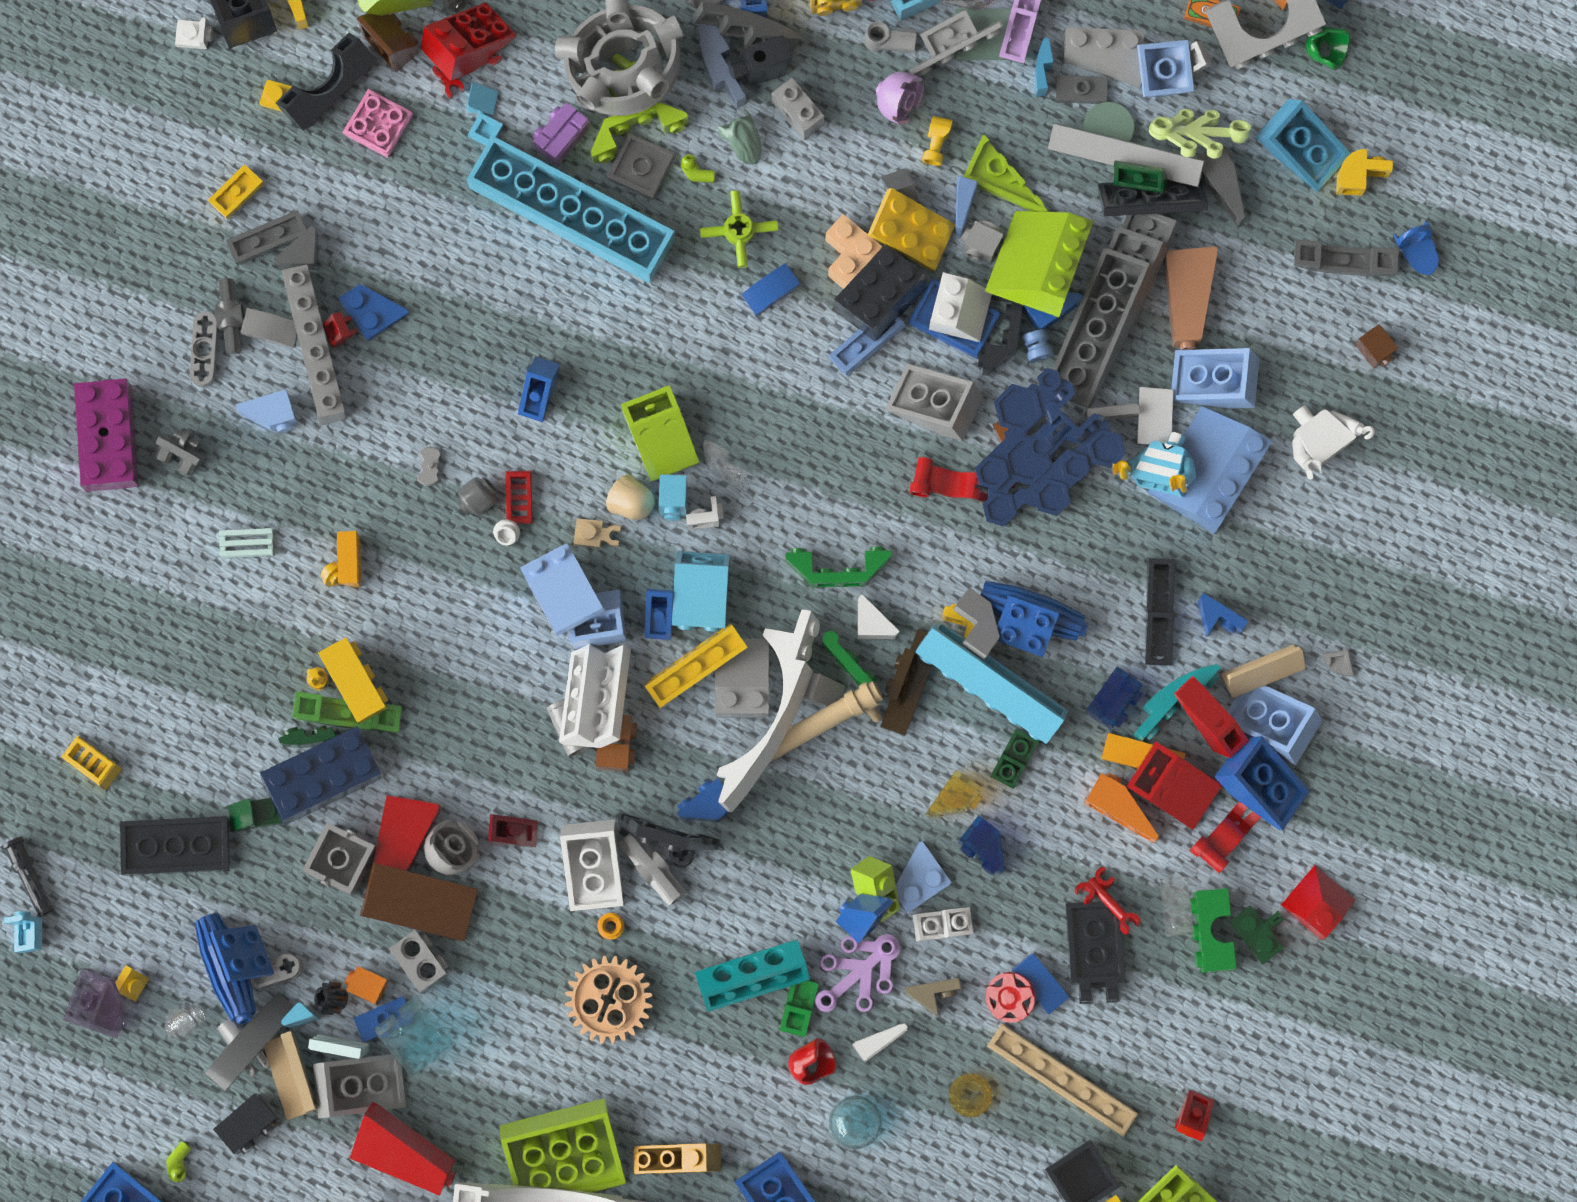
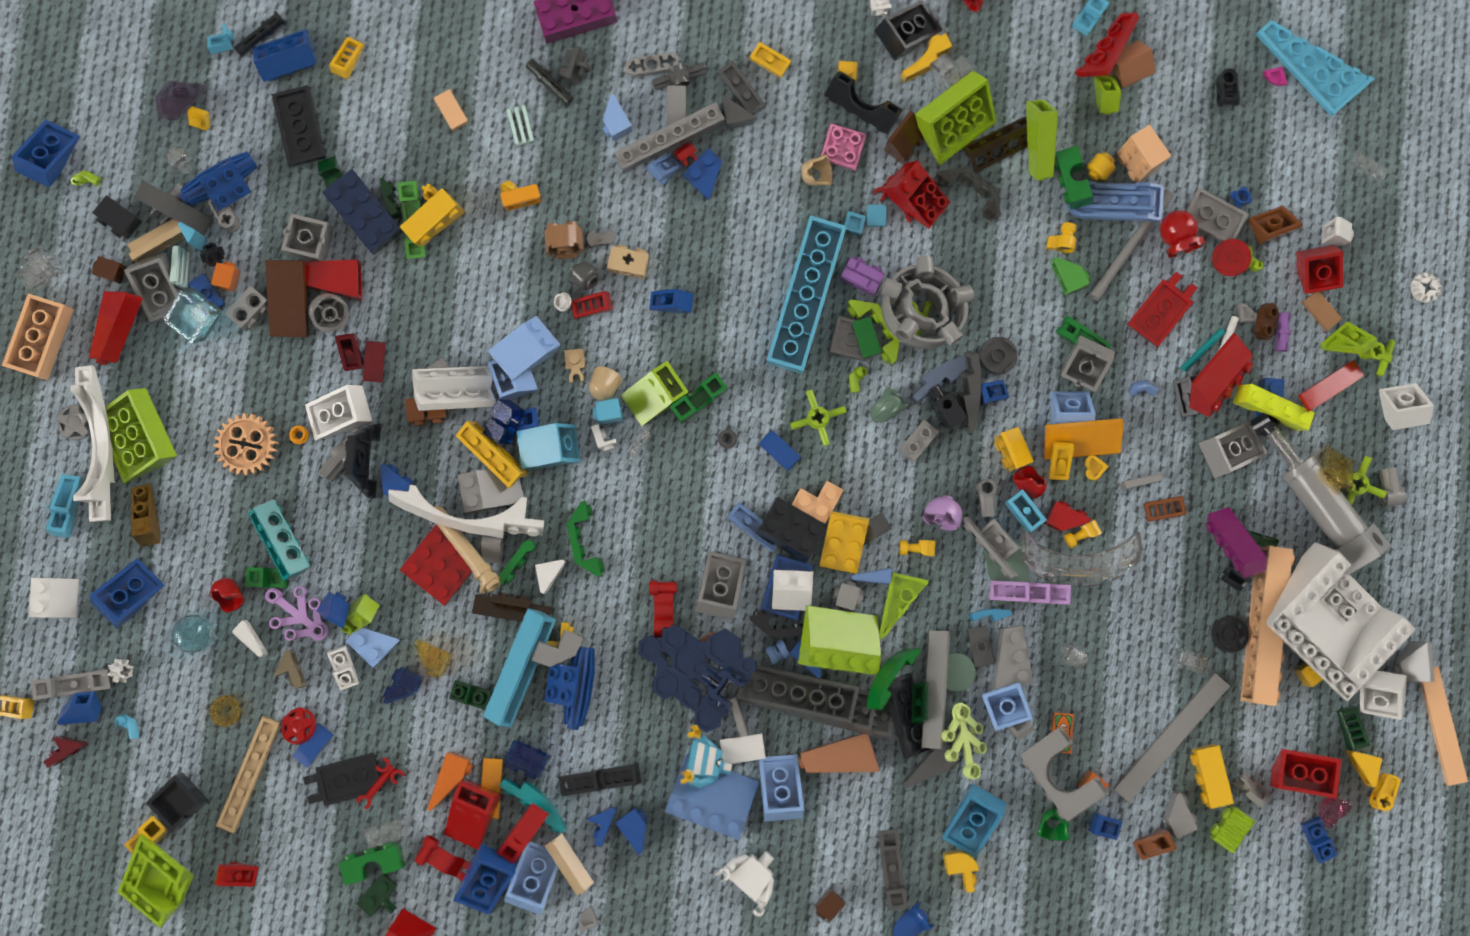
camera: 80 degrees right, 5 degrees up
(68, 846) = (284, 56): none -> blue slope
(195, 491) = (544, 77): none -> pearl dark grey pin
(201, 633) = (451, 110): none -> light nougat tile
(319, 1149) = (108, 270): none -> reddish brown brick
(353, 360) = (664, 168): none -> medium blue slope
(397, 154) = (823, 165): none -> tan hair
(423, 510) = (564, 240): none -> medium nougat brick
(482, 422) = (618, 265): none -> tan brick
(532, 801) = (374, 361): none -> dark red slope
(645, 145) = (866, 337): none -> green tile
(647, 636) = (499, 426): none -> clear blue piece
(679, 377) = (700, 398): none -> green arch
(741, 346) = (732, 443): none -> dark grey plate
(831, 770) = (437, 566): none -> red plate
(1115, 220) = (879, 691): none -> green slope
(1231, 576) = (634, 828): none -> blue slope

